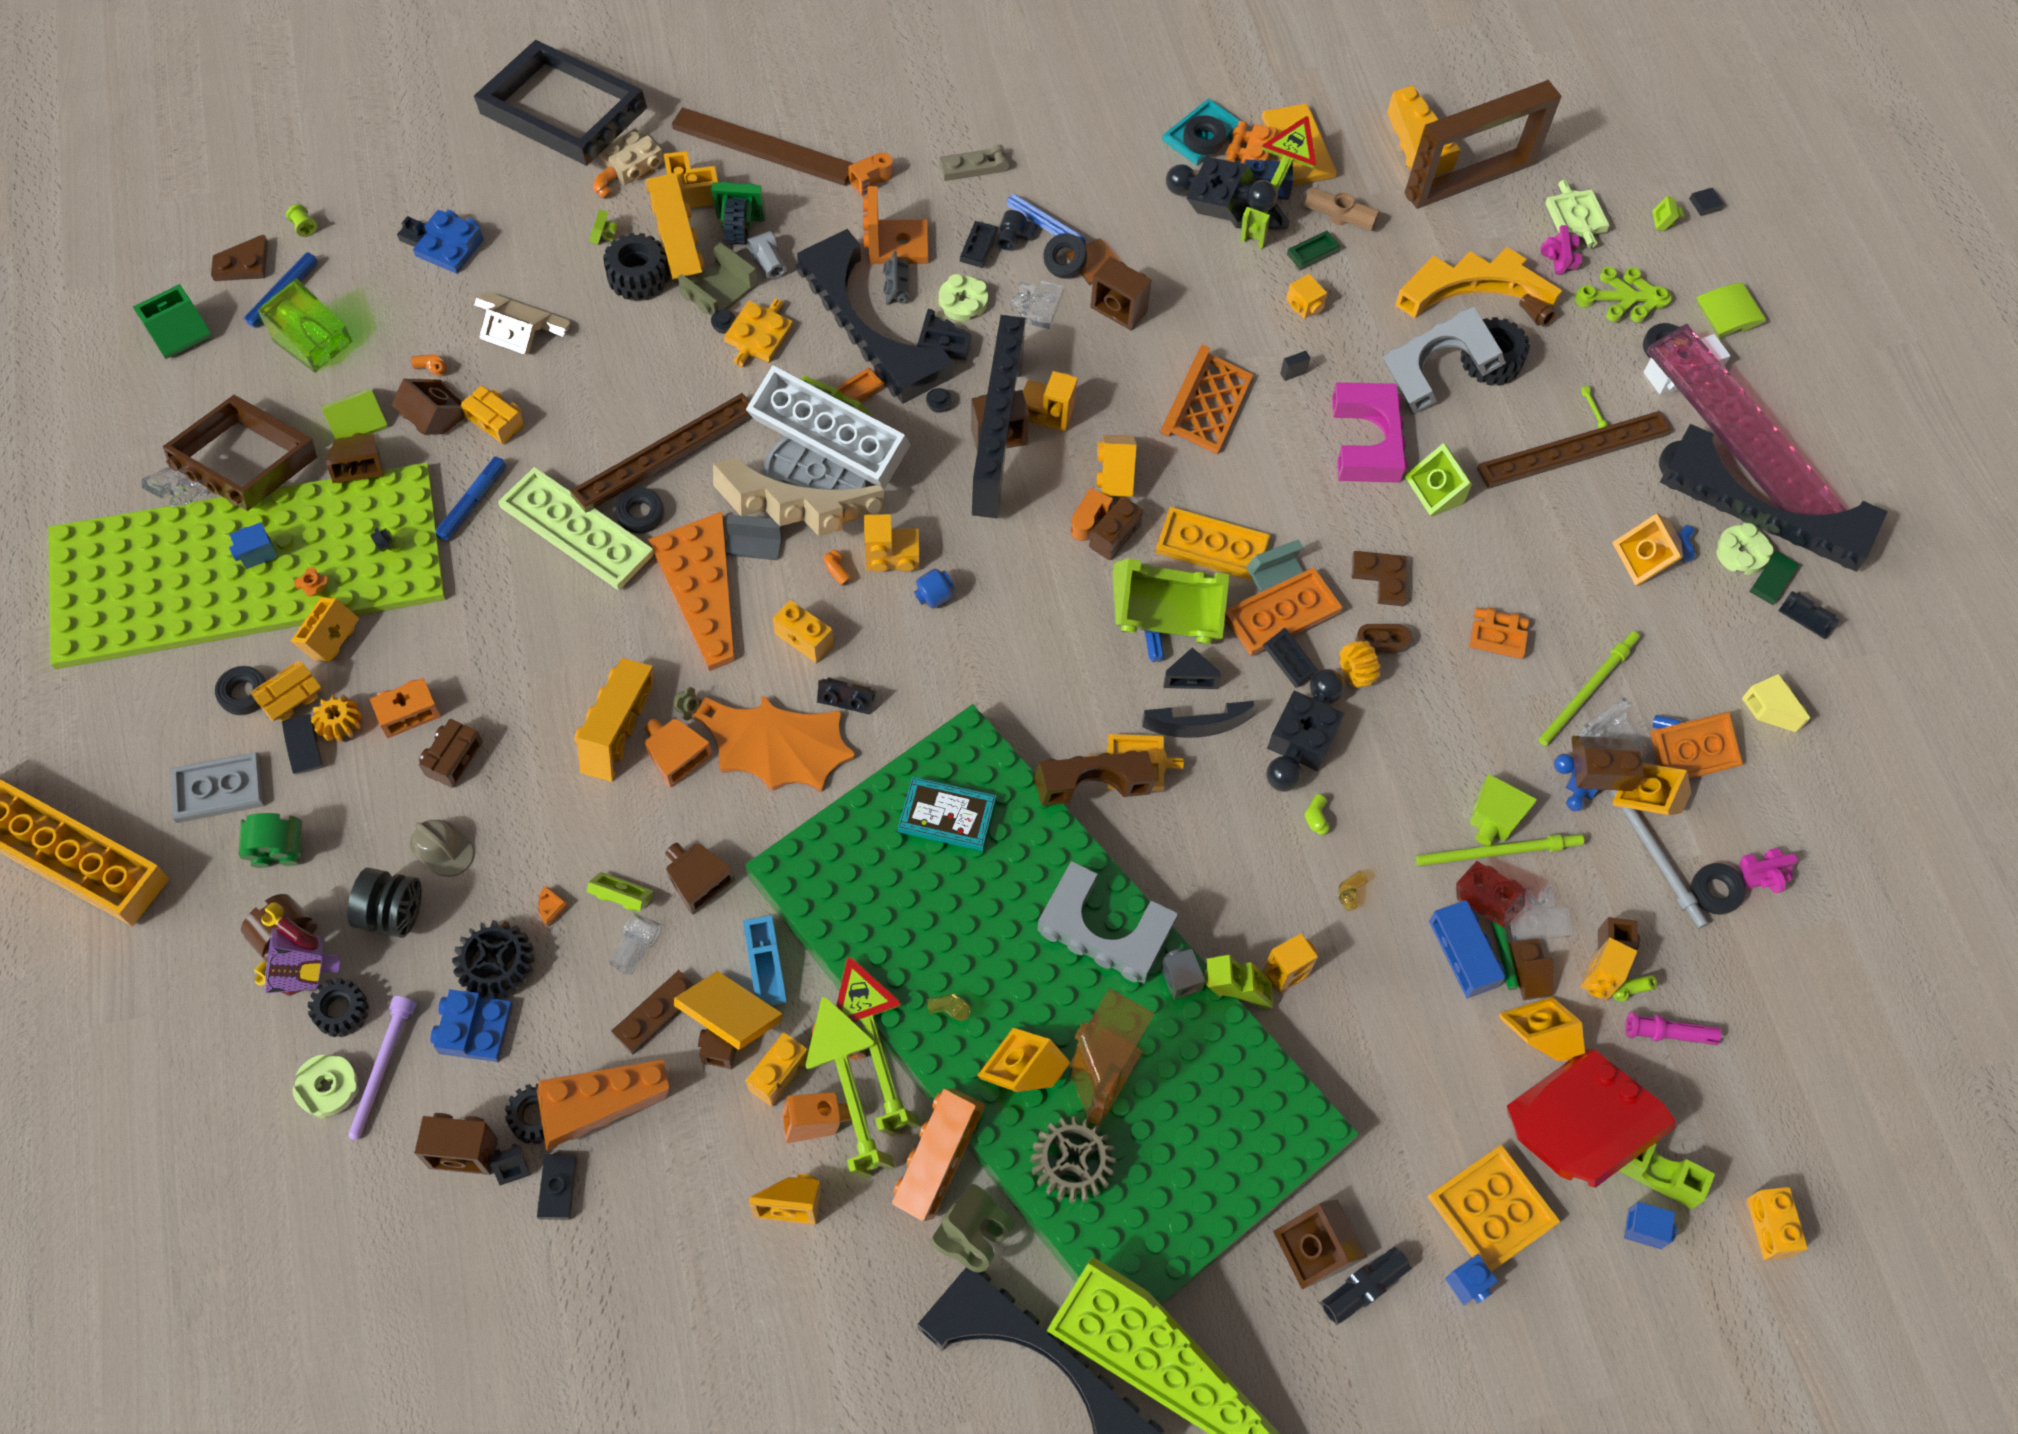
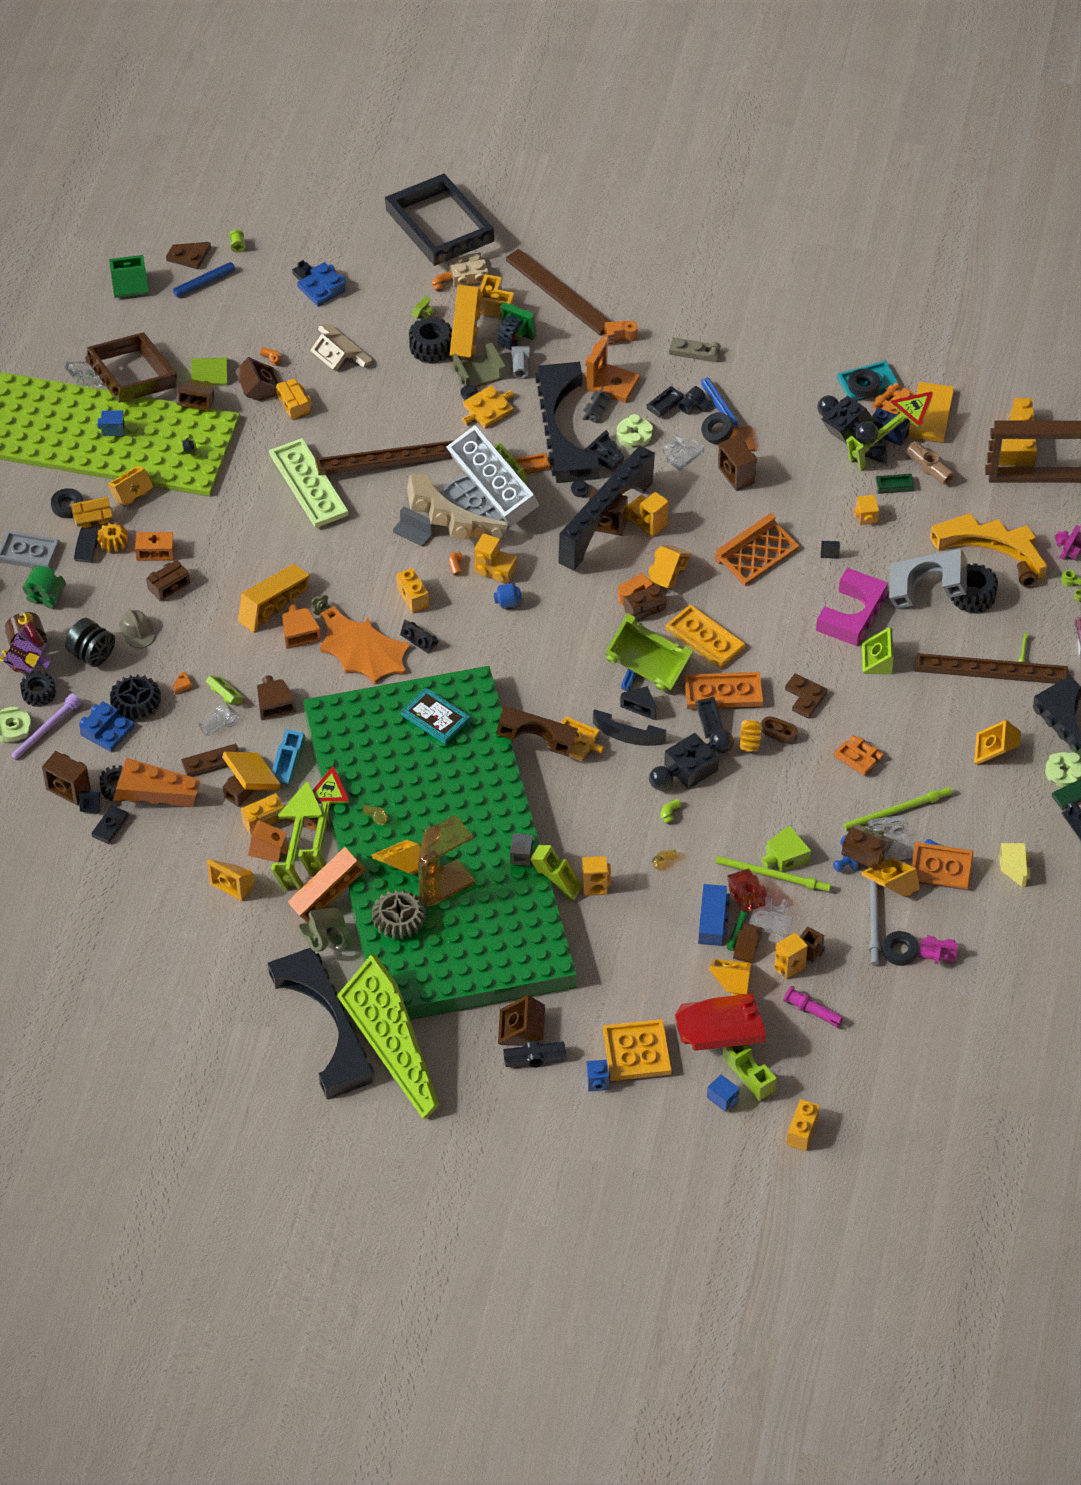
camera: 30 degrees right, 10 degrees down
(304, 326) = (205, 306): clear neon green slope -> none
(313, 588) = (135, 456): orange plate -> none
(470, 498) = (255, 443): blue axle -> none
(645, 523) = (353, 477): black tyre -> none
(698, 578) = (366, 540): orange wing -> none
(1130, 955) = (496, 827): light grey arch -> none
(1275, 565) = (735, 660): sand green panel -> none
(1634, 986) = (803, 976): lime arm -> none
(1687, 548) = (1023, 749): blue arm -> none

